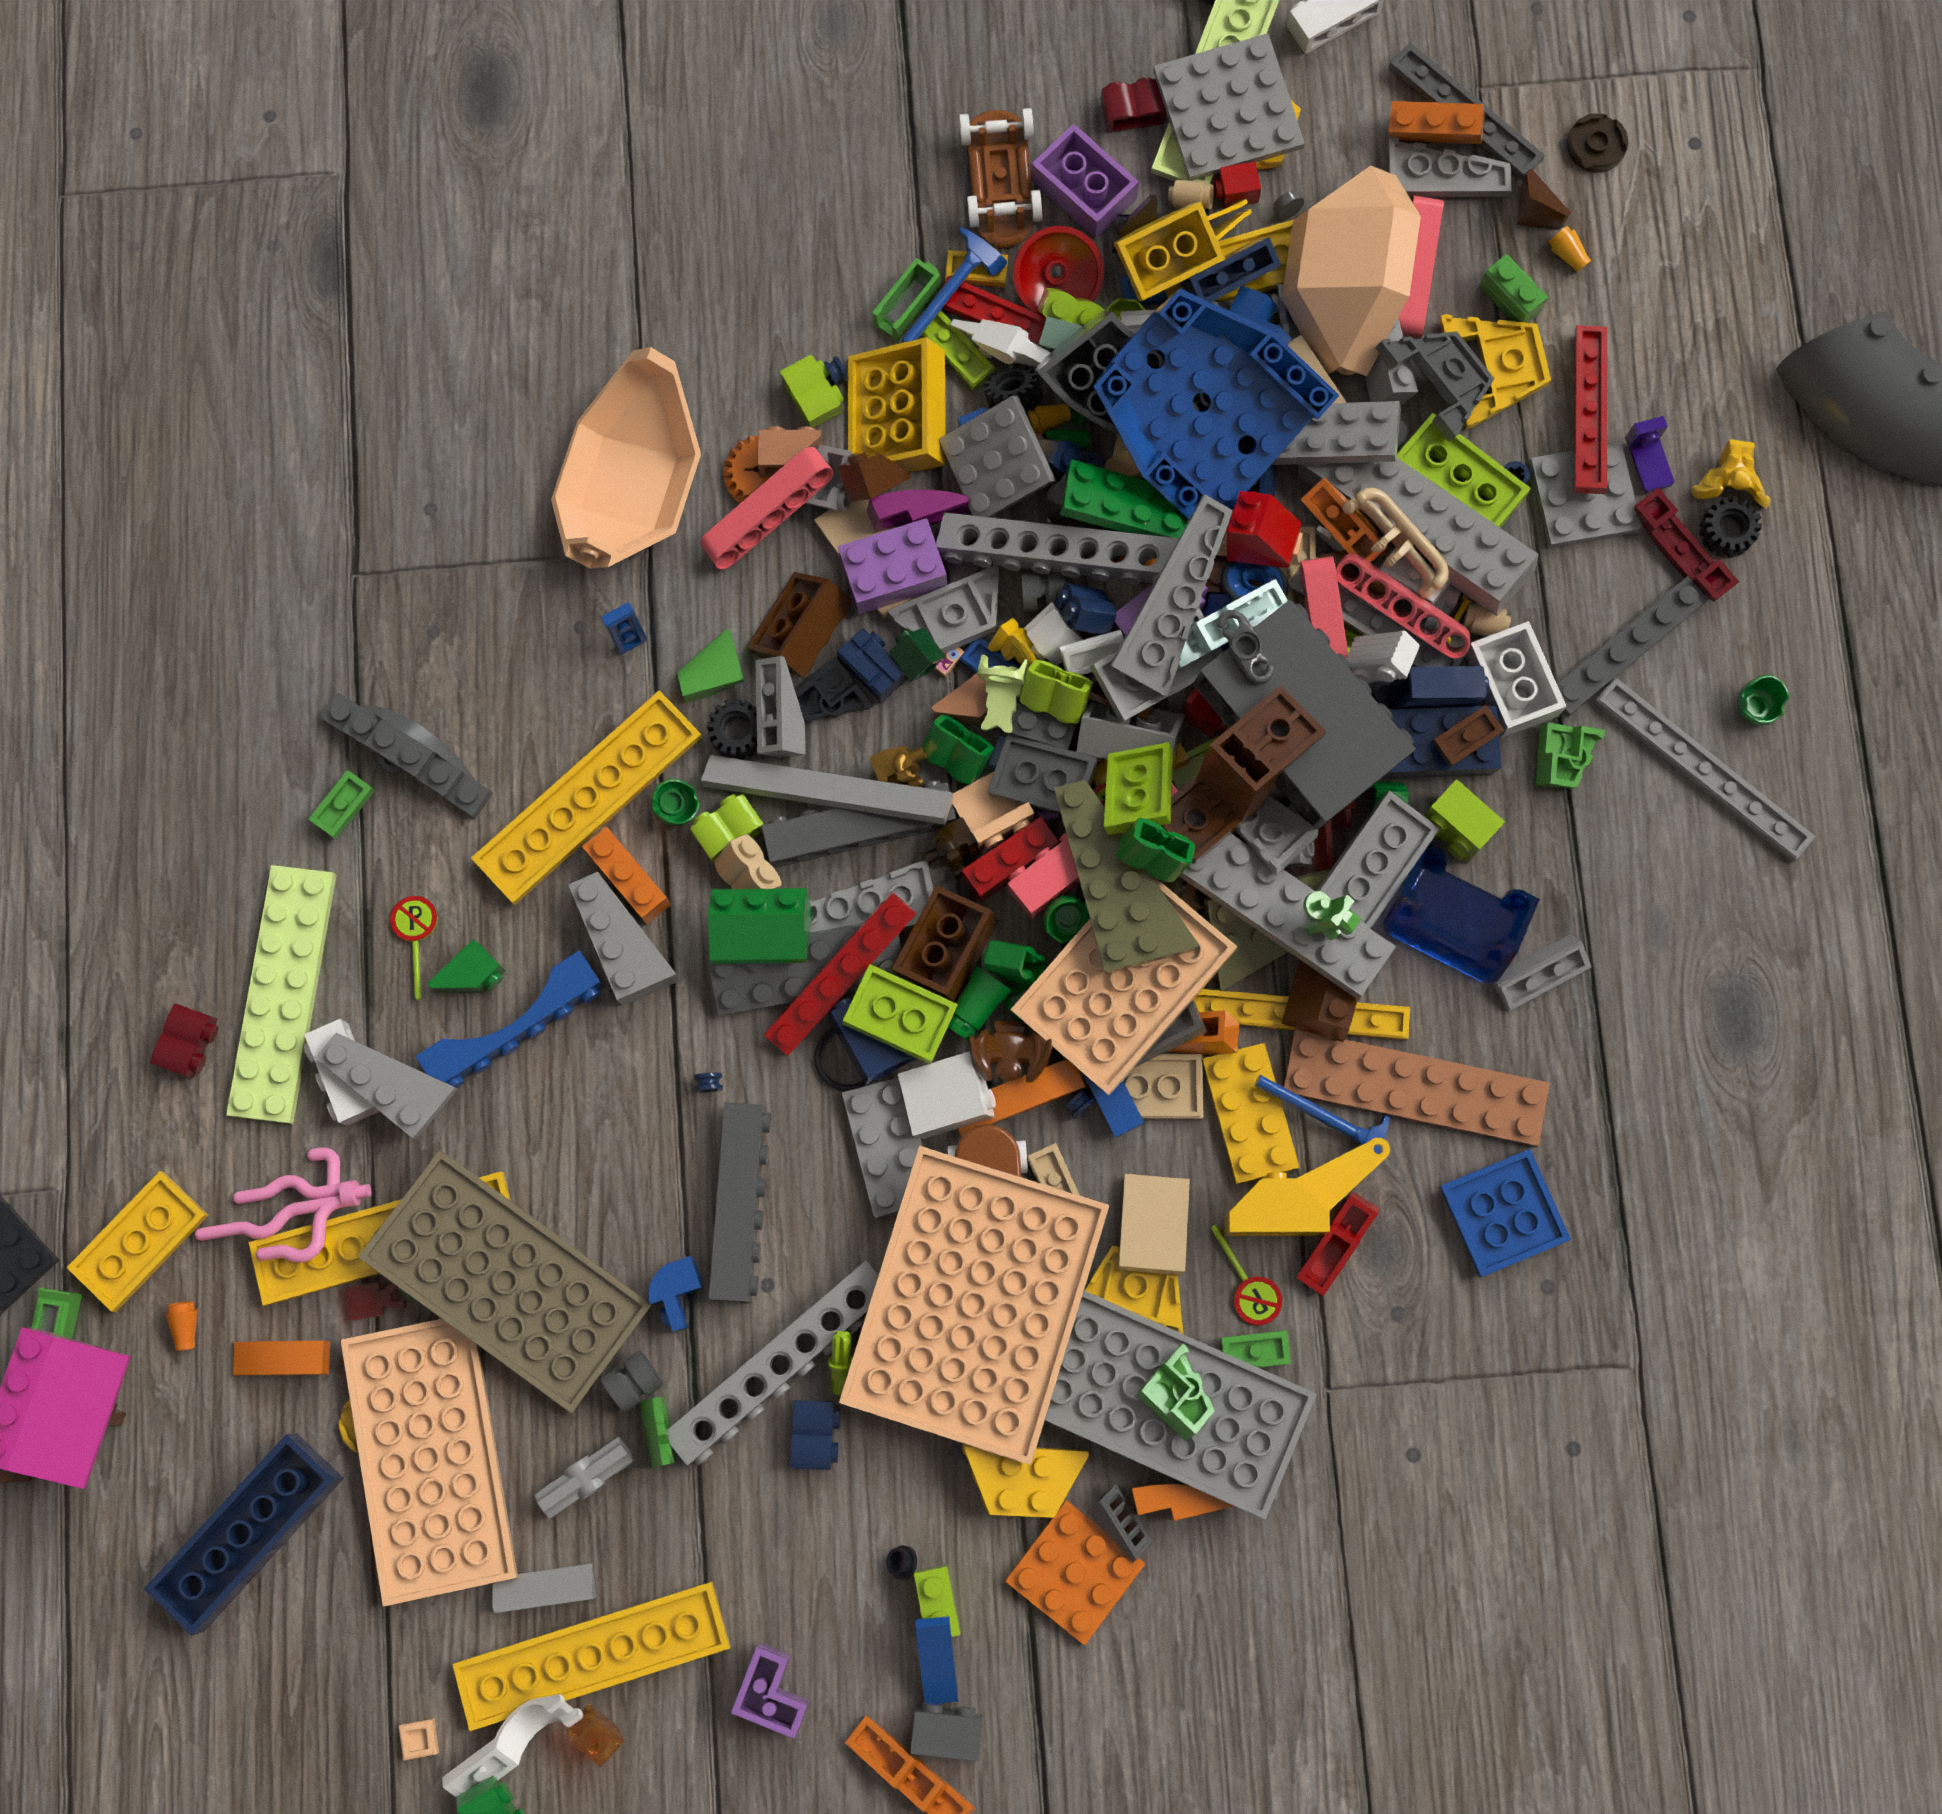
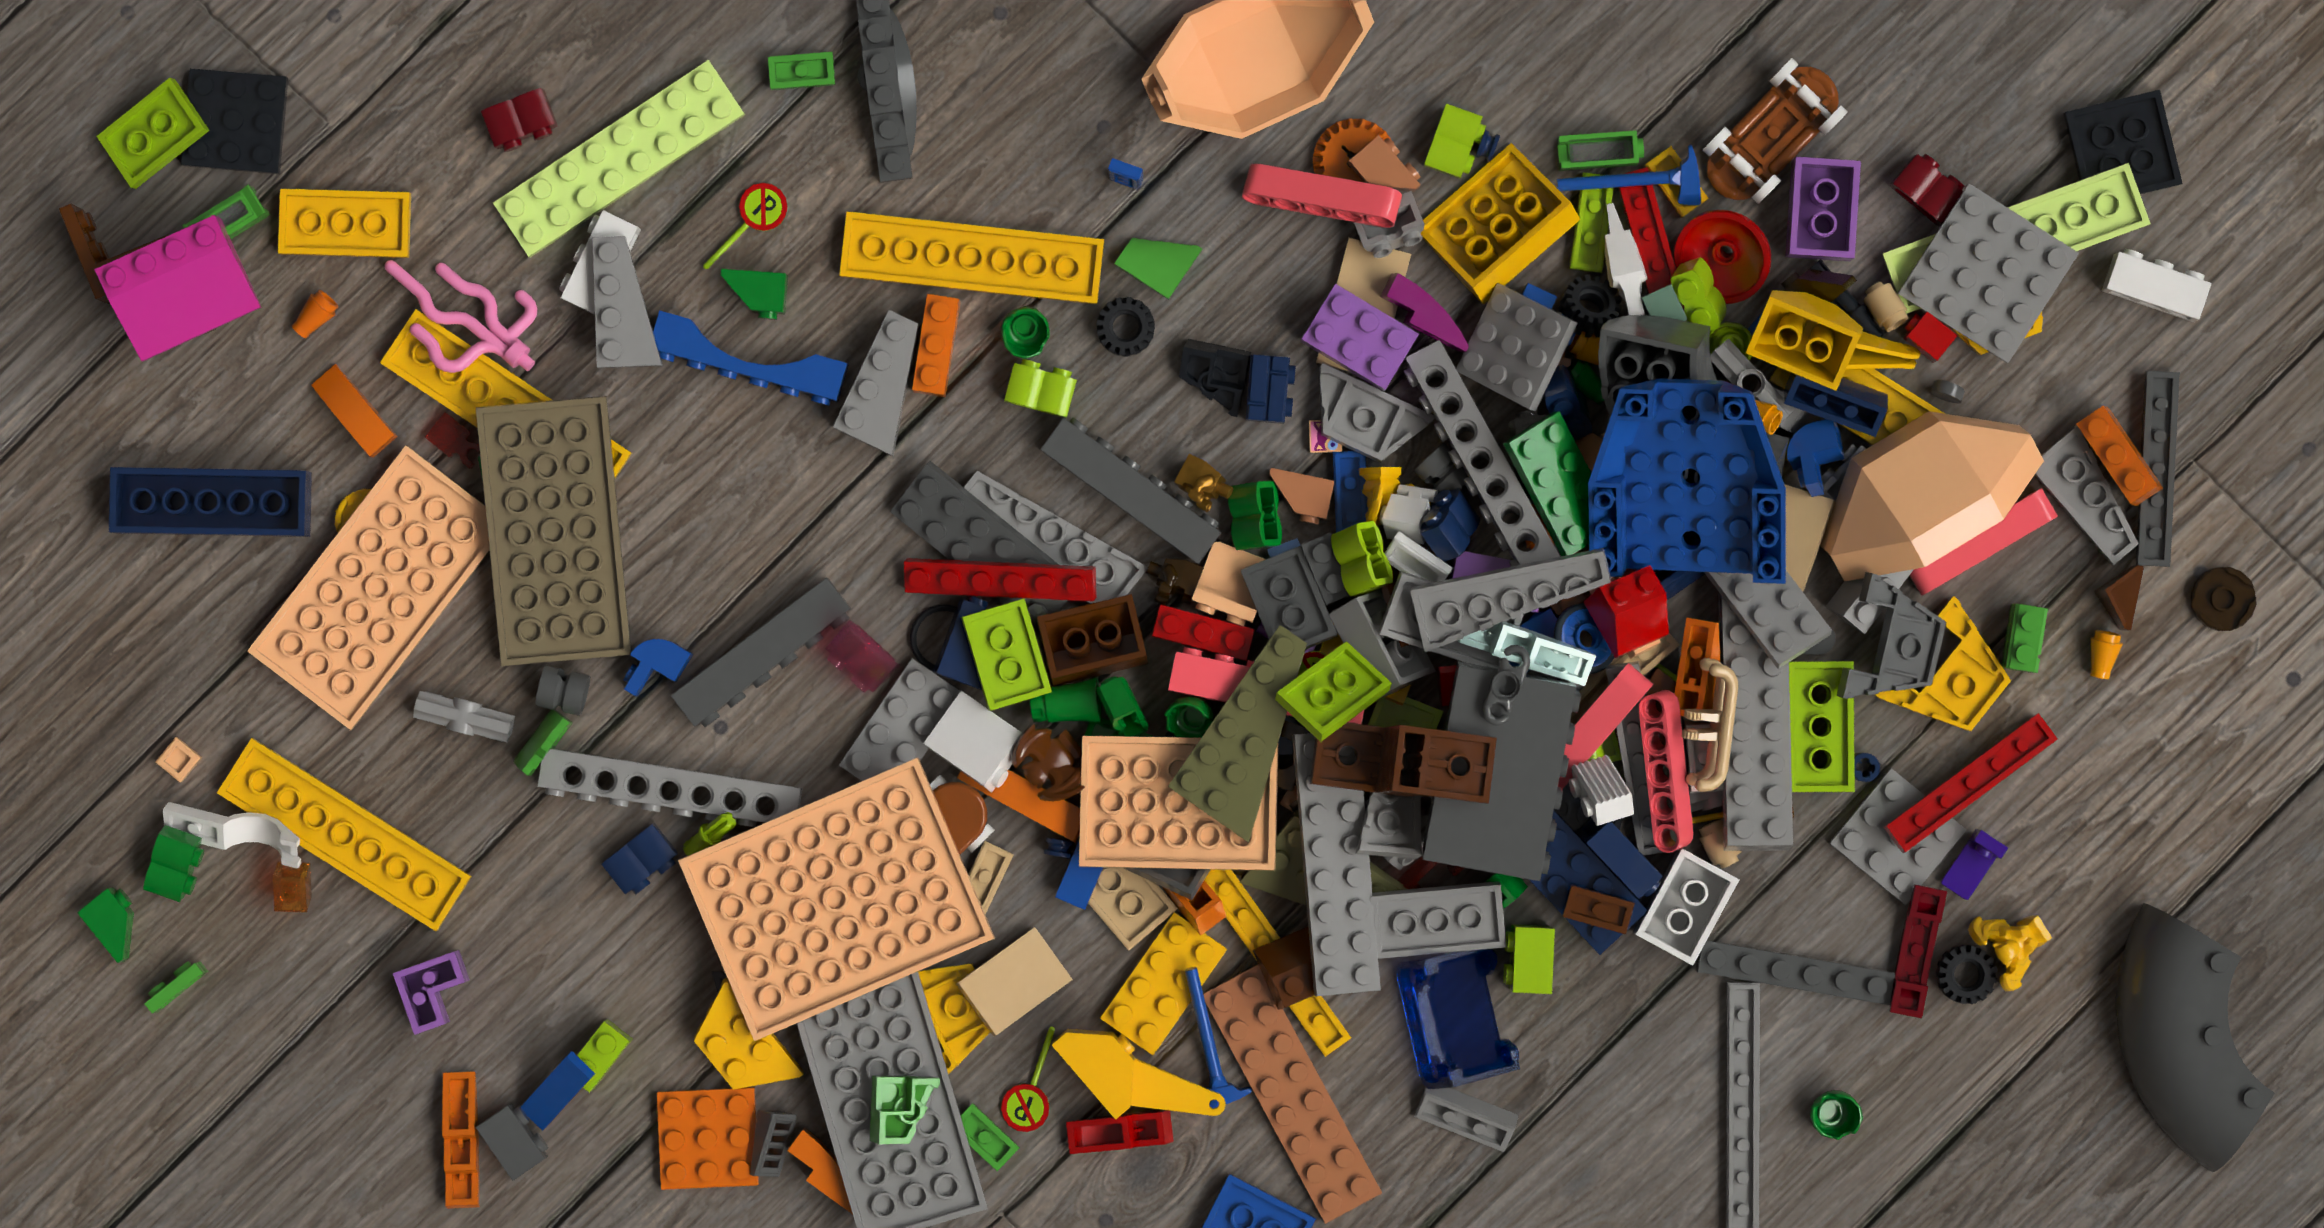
camera: 50 degrees right, 10 degrees up
(544, 1588) = (361, 757): light grey slope -> none
(708, 1082) = (832, 549): dark blue bush -> none
(744, 866) = (1018, 438): tan brick -> none
(759, 925) = (981, 487): green slope -> none
(778, 711) = (1165, 350): light grey slope -> none
(800, 622) = (1252, 301): reddish brown slope -> none
(807, 1127) = (862, 657): none -> clear pink slope
(827, 789) = (1135, 443): light grey tile -> none
(870, 475) = (1416, 257): reddish brown slope -> none
(902, 1562) = (605, 1004): black plate -> none
(916, 653) = (1304, 418): dark green brick -> none
(1003, 689) = (1332, 513): yellowish green hair -> none
(1155, 850) = (1291, 747): green brick -> none
(1329, 915) = (1354, 921): bright green hips -> none
(1564, 754) = (1661, 994): bright green slope -> none

